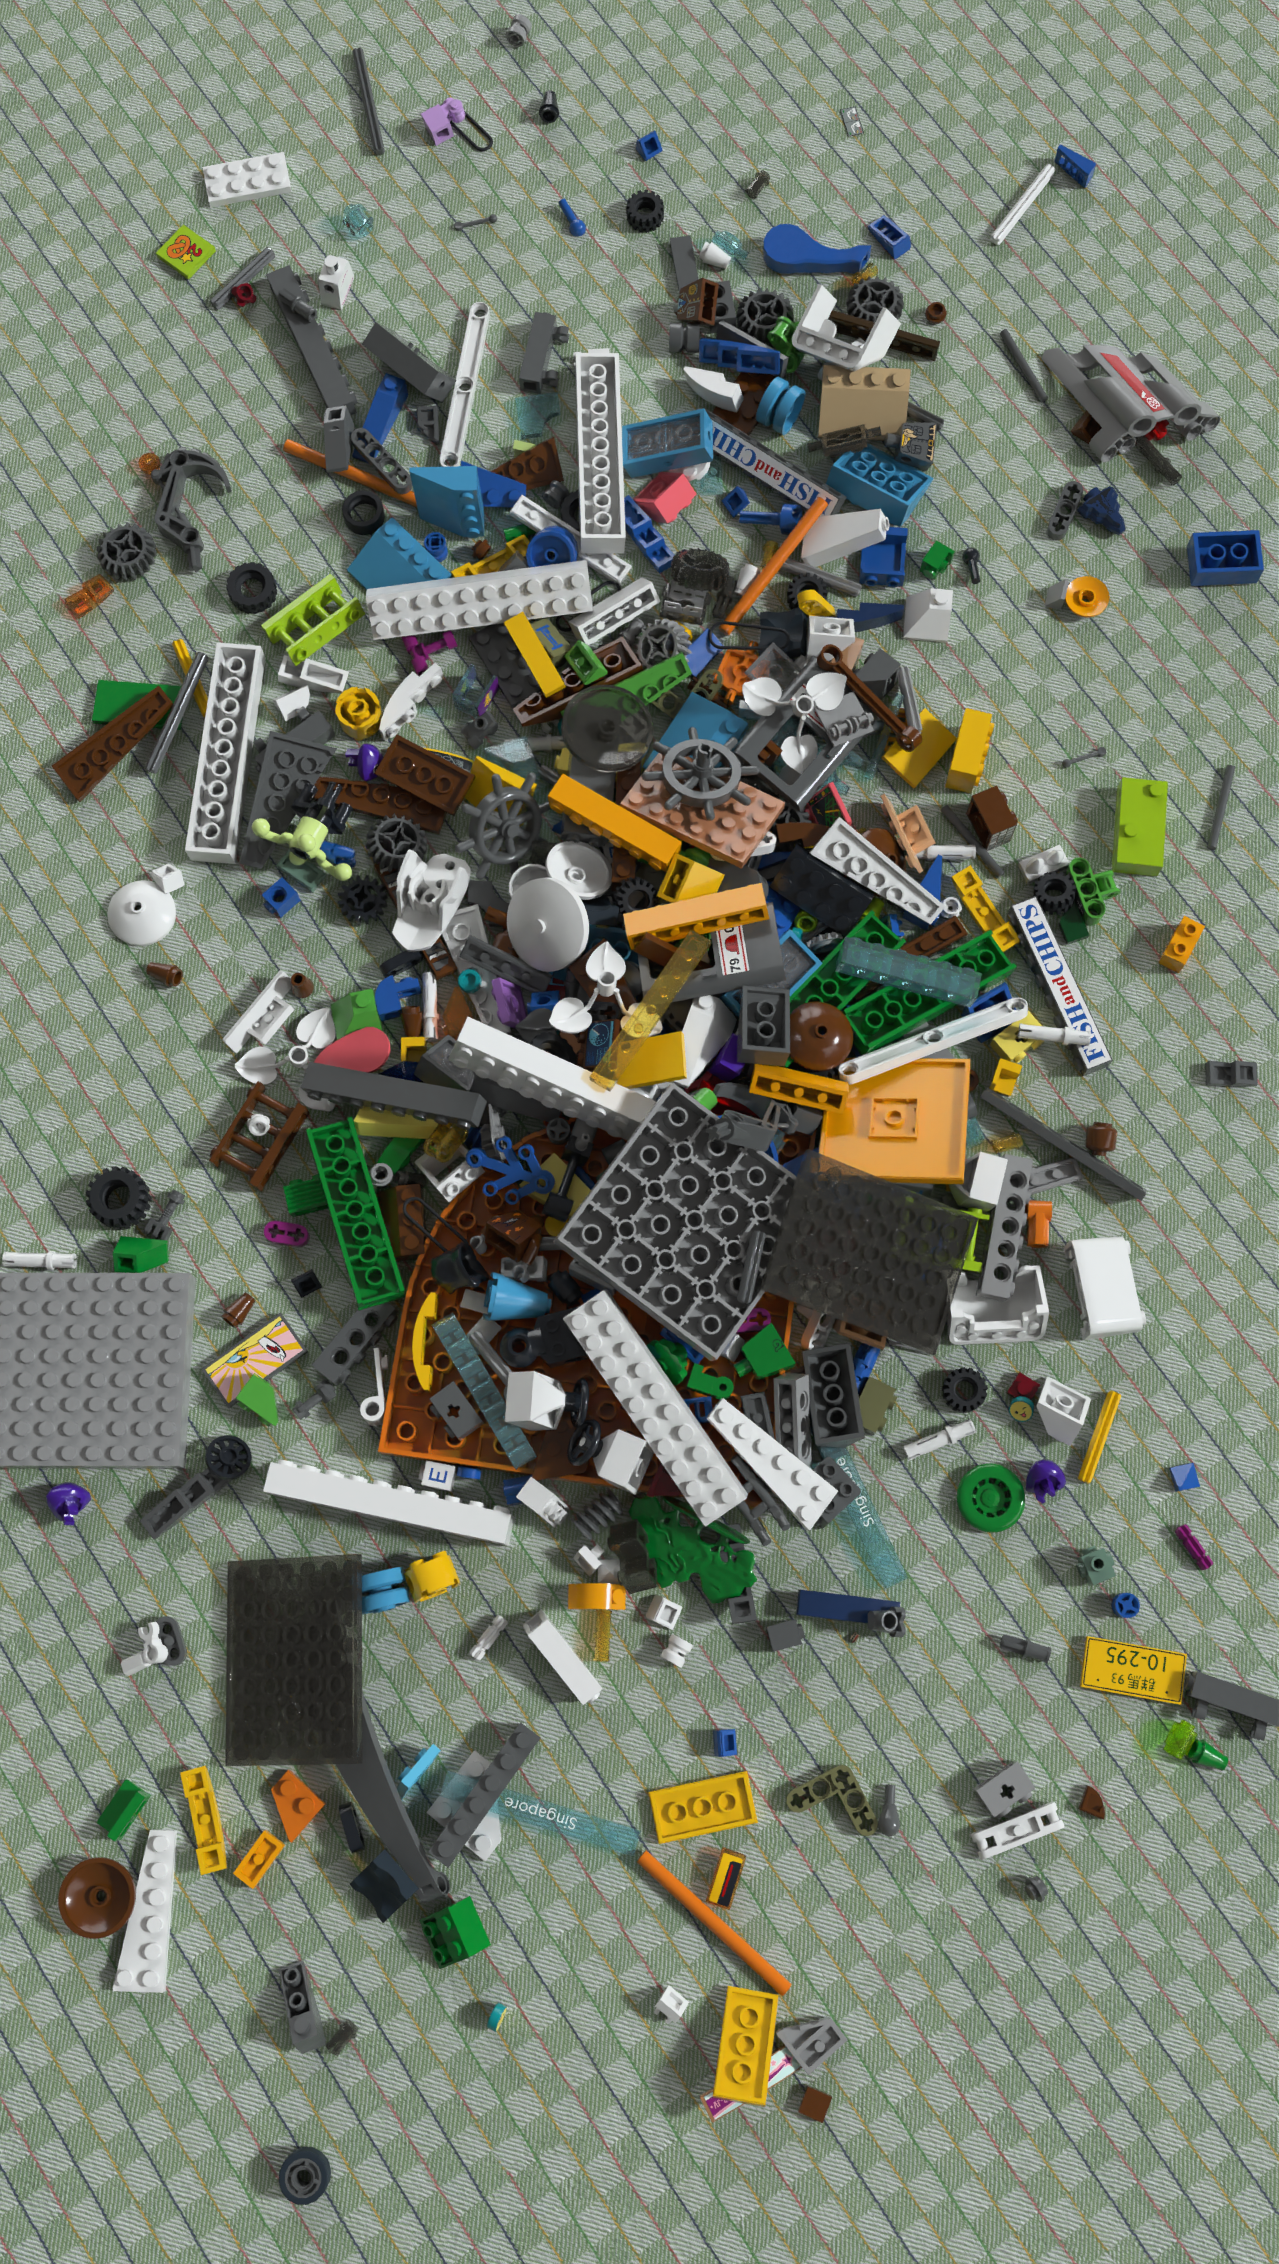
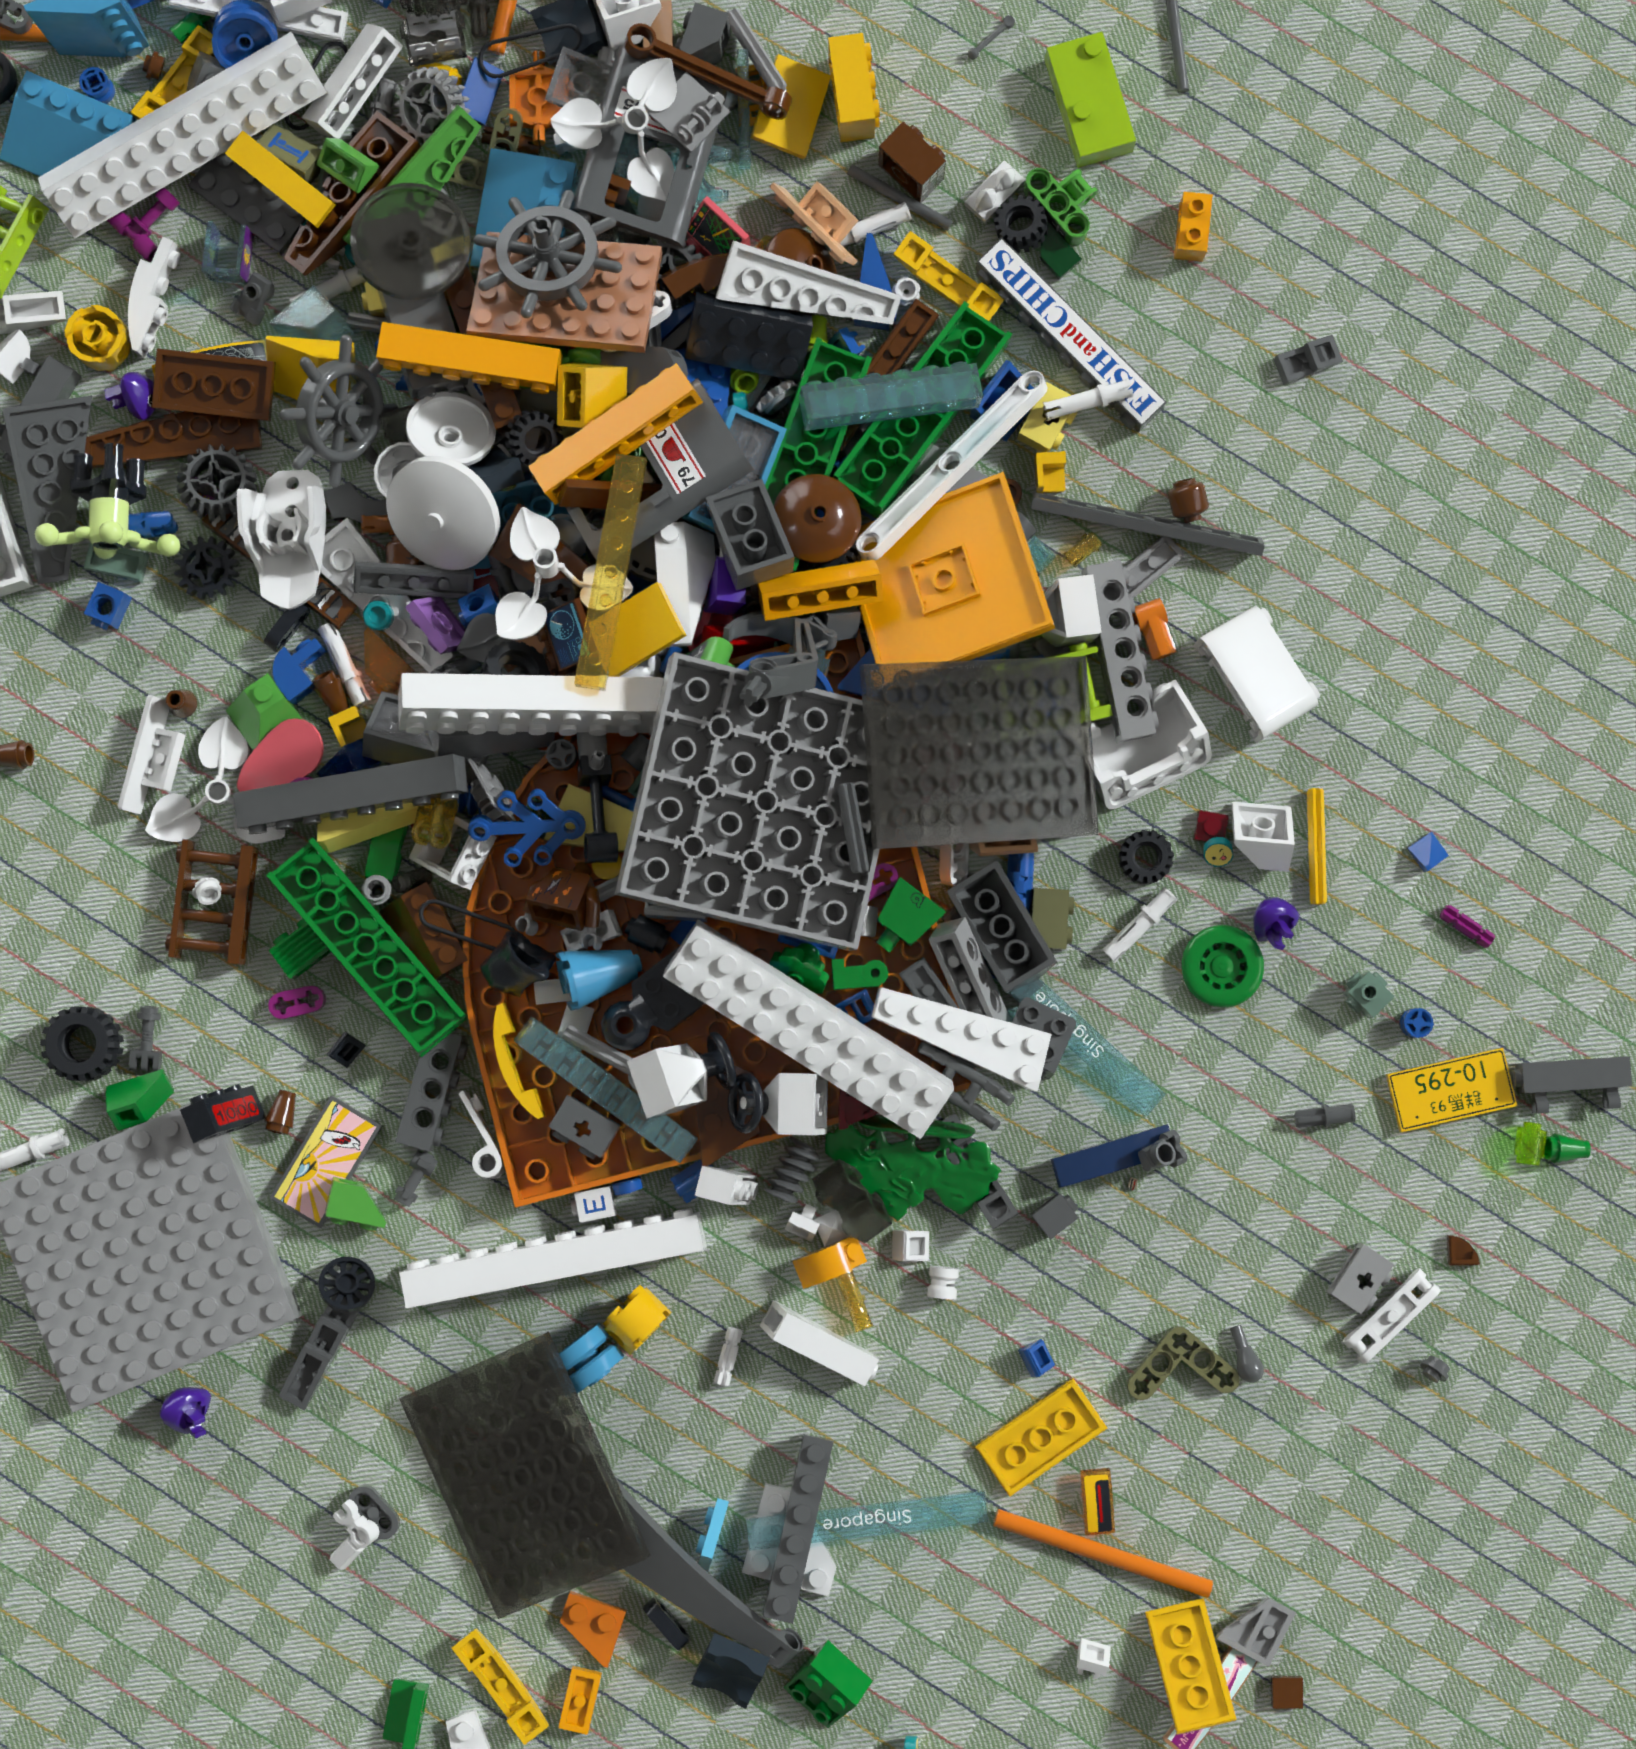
camera: 20 degrees left, 10 degrees up
(195, 1288) = (222, 1112): none -> black brick

